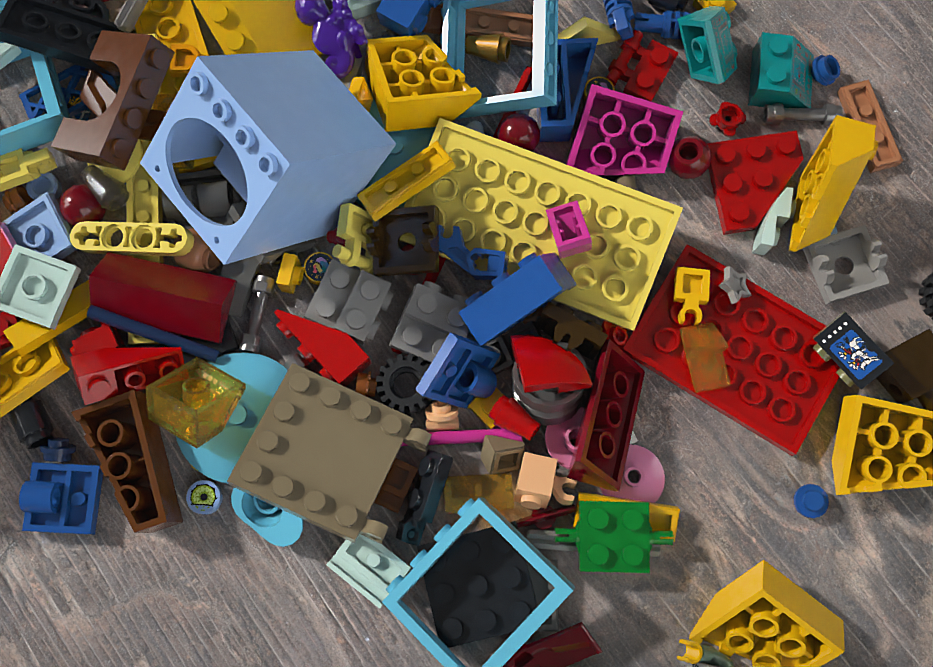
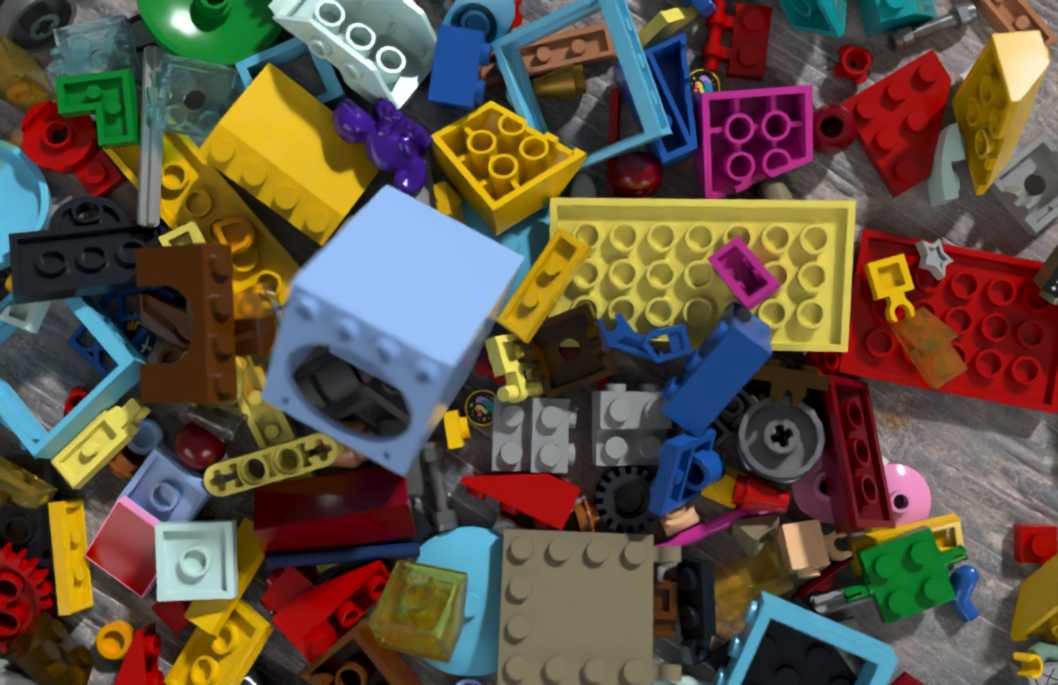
camera: 15 degrees left, 10 degrees up
(547, 365) = (778, 433): red brick -> none
(659, 573) = (963, 584): none -> blue arm
(738, 559) = (1035, 542): none -> red plate

